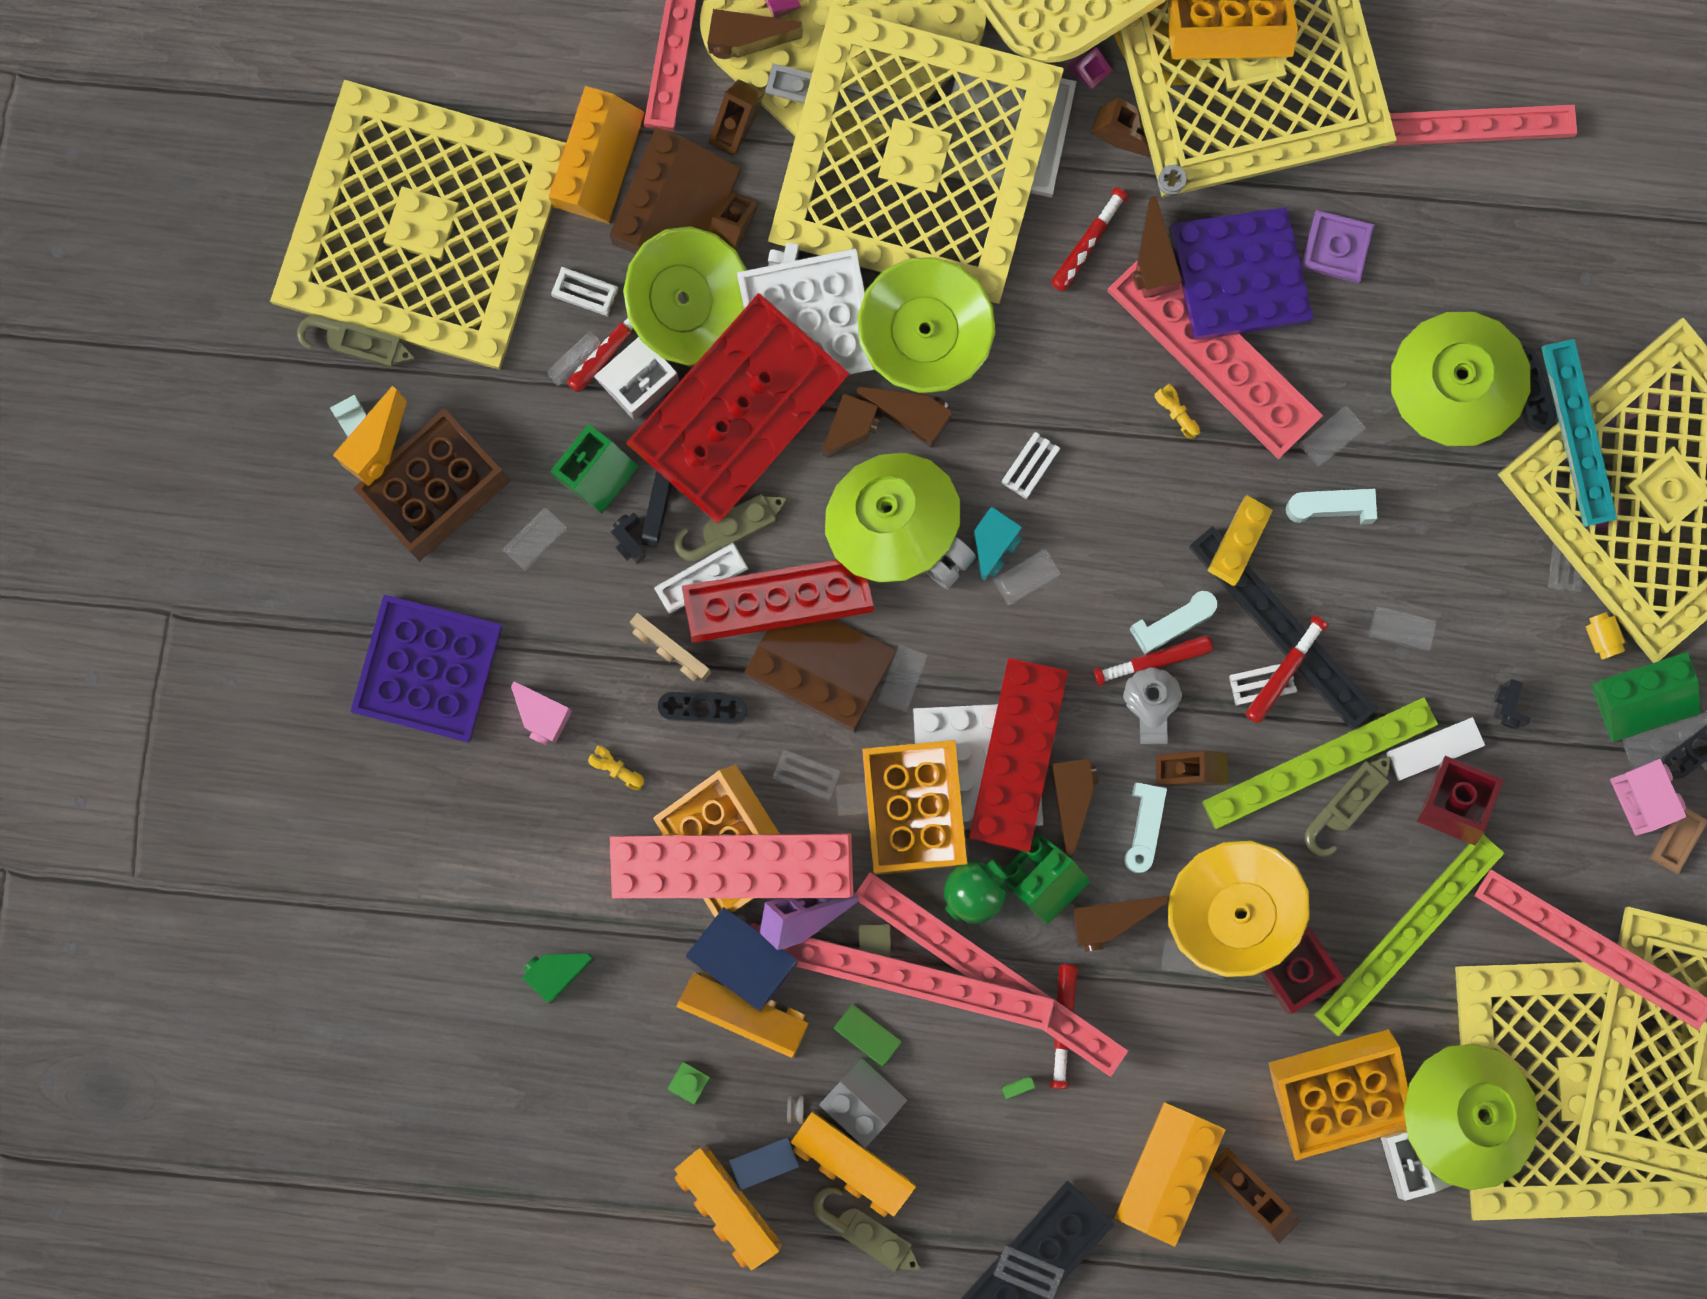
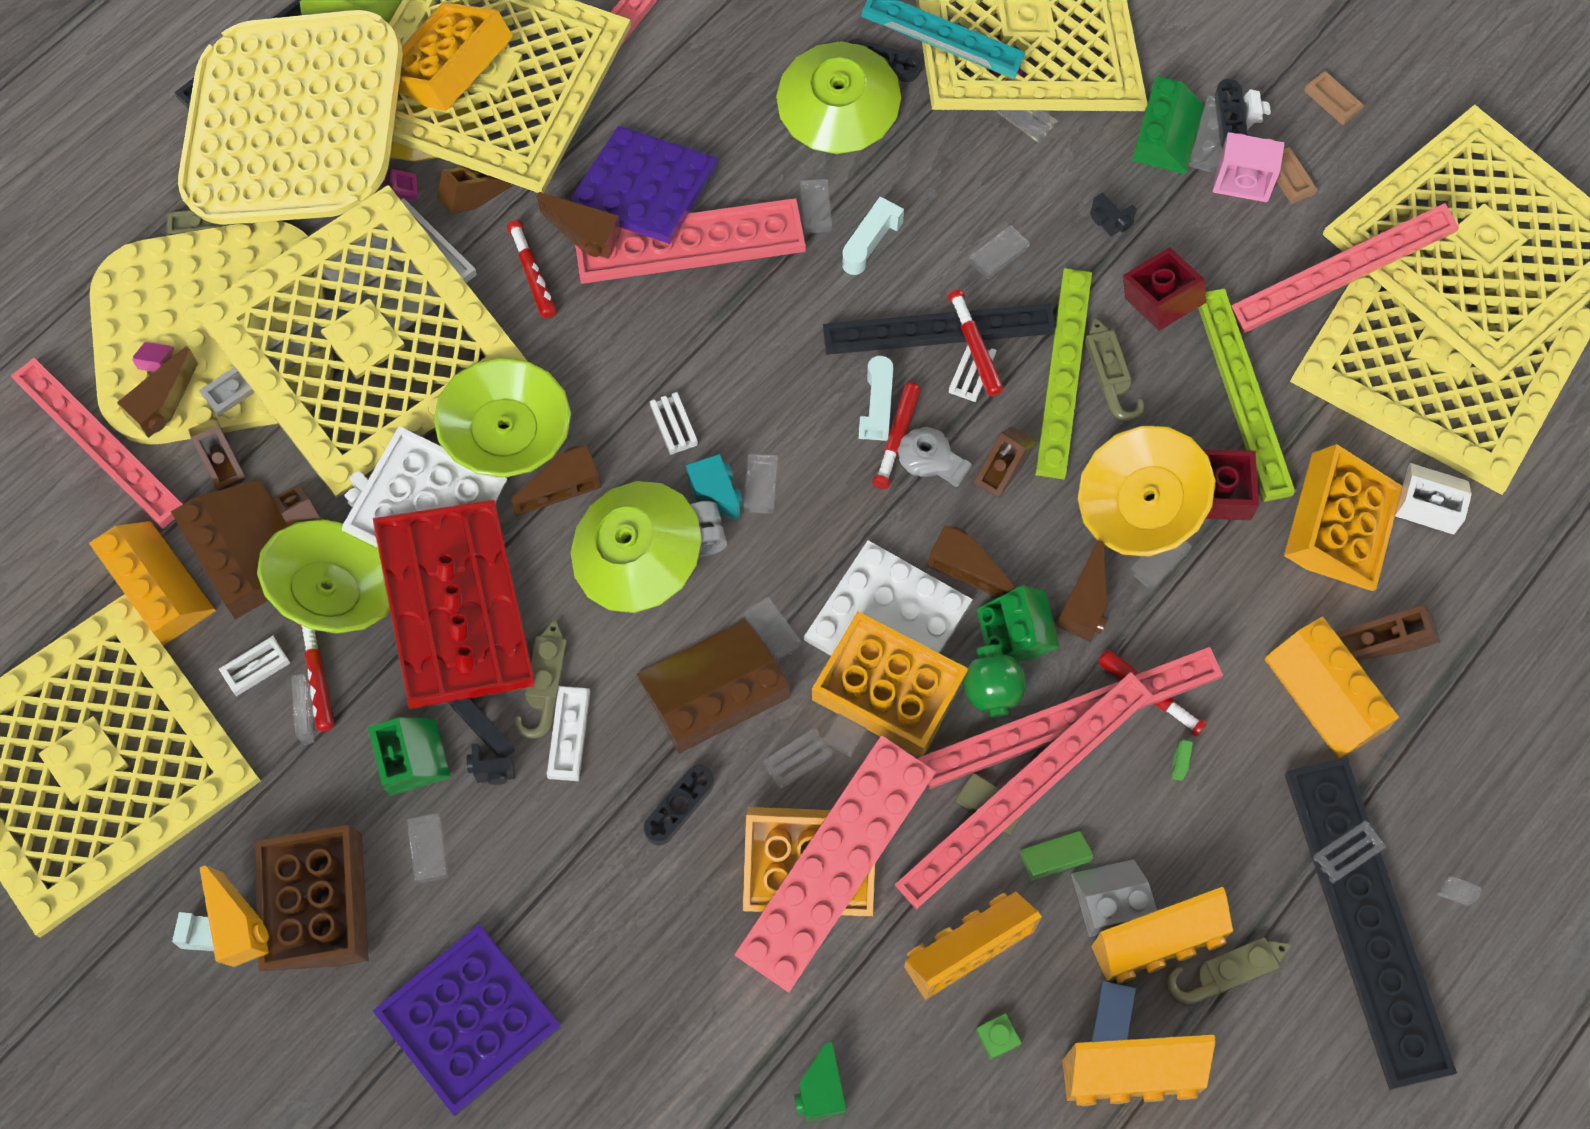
camera: 60 degrees left, 15 degrees down
(357, 341) = (135, 882): olive plate -> none
(540, 714) = (581, 944): bright pink slope -> none
(633, 779) = (662, 918): yellow piece -> none
(637, 378) = (361, 667): white slope -> none
(669, 649) = (608, 795): tan plate -> none
(741, 959) = (922, 910): dark blue tile -> none
(774, 600) = (632, 681): plate -> none
(795, 1109) = (1082, 957): light grey bush -> none
(797, 919) = (919, 838): medium lavender slope -> none
(851, 425) = (535, 529): reddish brown slope -> none
(1018, 755) = (903, 577): red plate -> none
(1141, 855) = (1028, 523): light aqua leg -> none
(1169, 399) = (700, 294): yellow piece -> none
(1179, 172) = (536, 181): light grey bush -> none
(1240, 540) = (849, 311): yellow plate -> none
(1337, 246) = (675, 113): medium lavender tile -> none
(1432, 748) = (1109, 287): white tile -> none
(1445, 1120) = (1423, 434): lime dish -> none
(1605, 635) = (1103, 124): yellow brick -> none

